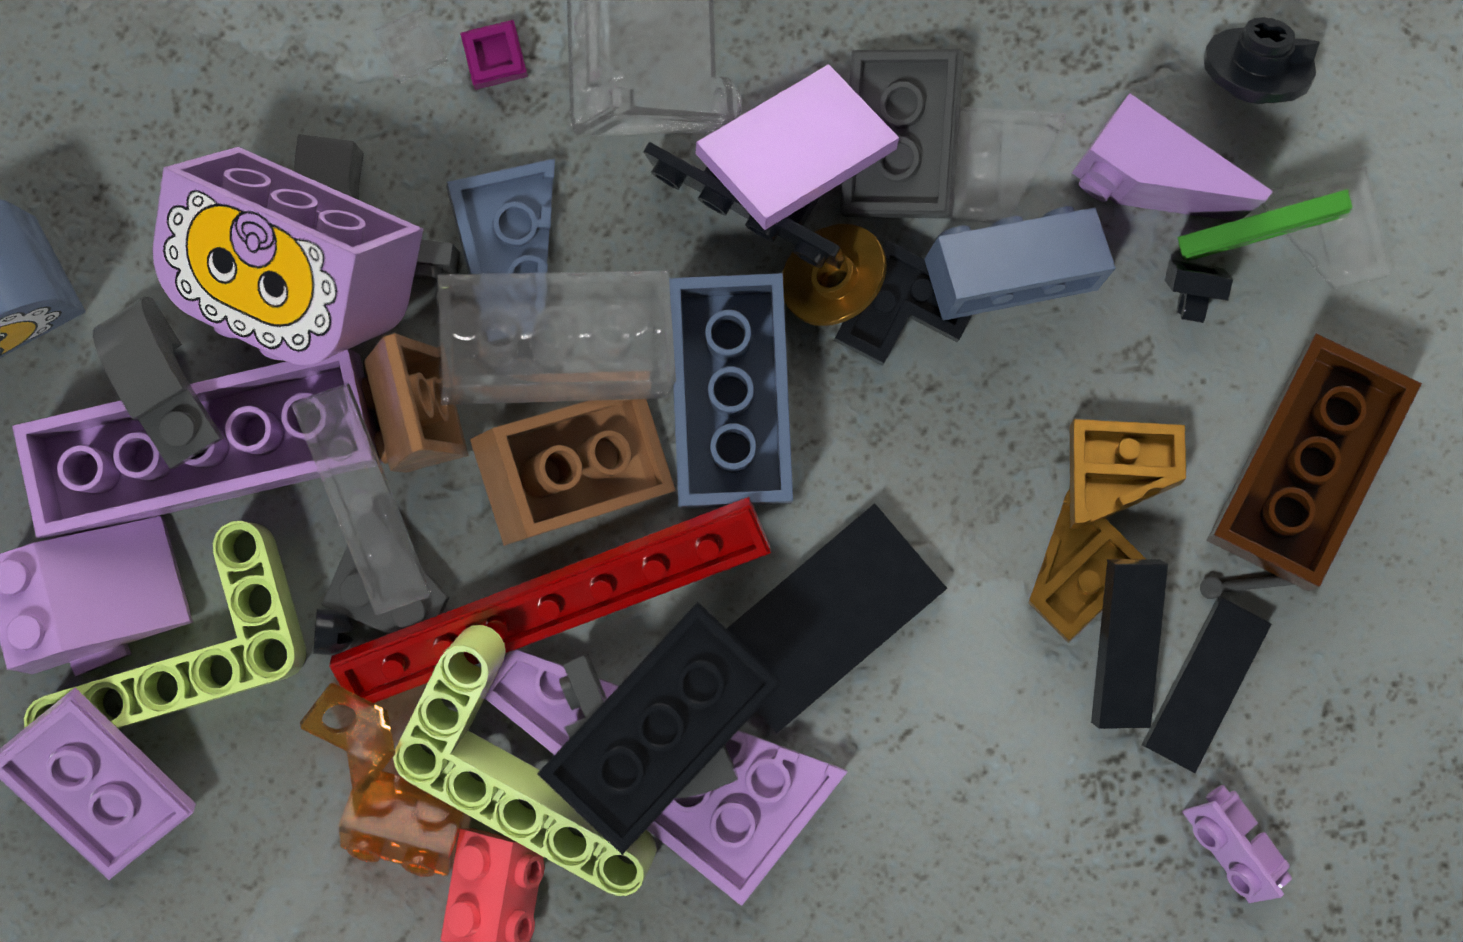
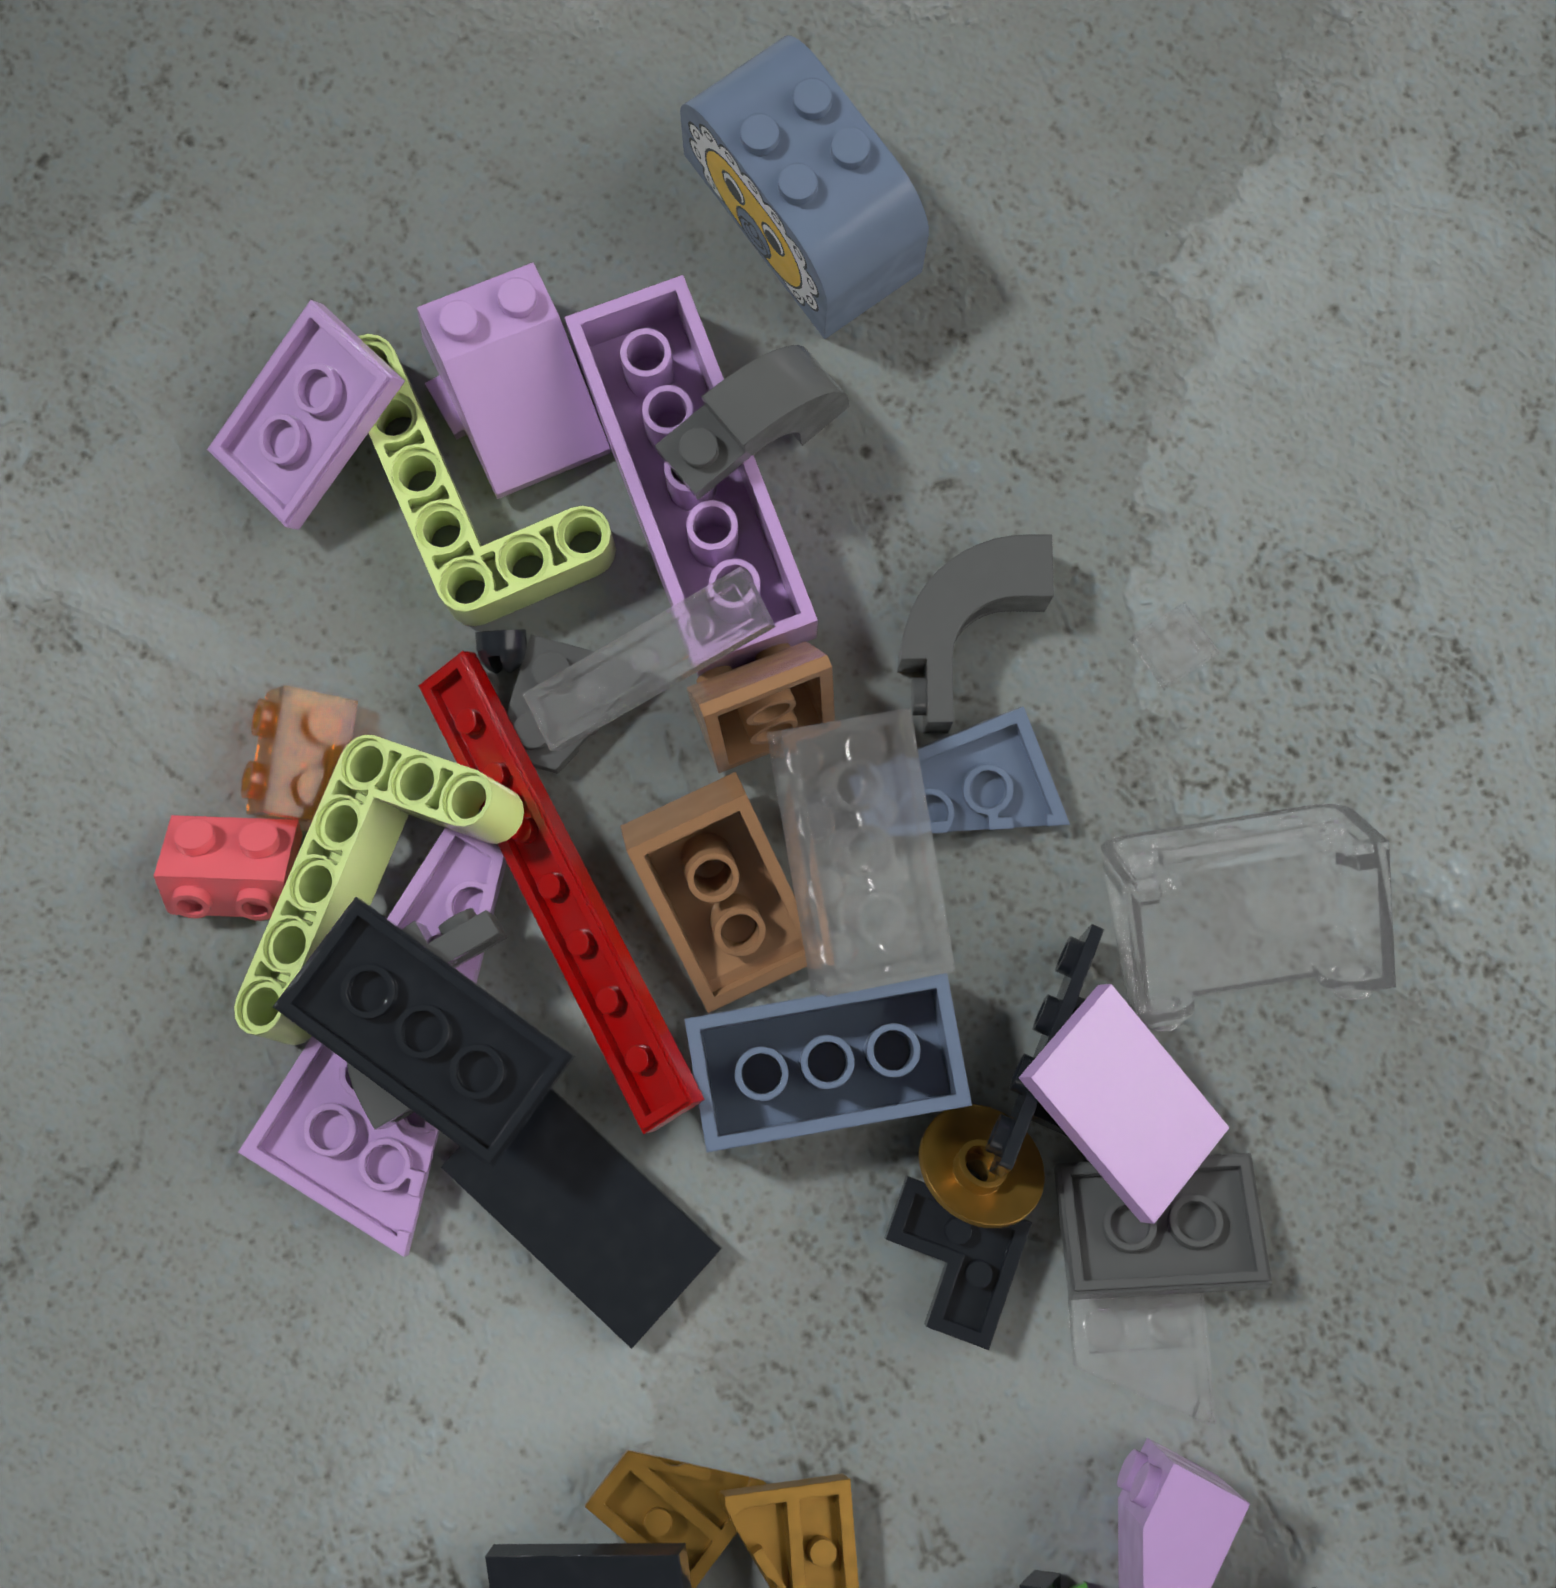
camera: 80 degrees right, 5 degrees down
(280, 257) = (907, 533): brick -> none
(366, 739) = (387, 701): clear orange bracket -> none
(494, 54) = (1178, 740): magenta tile -> none
(1018, 262) = (1028, 1389): sand blue brick -> none

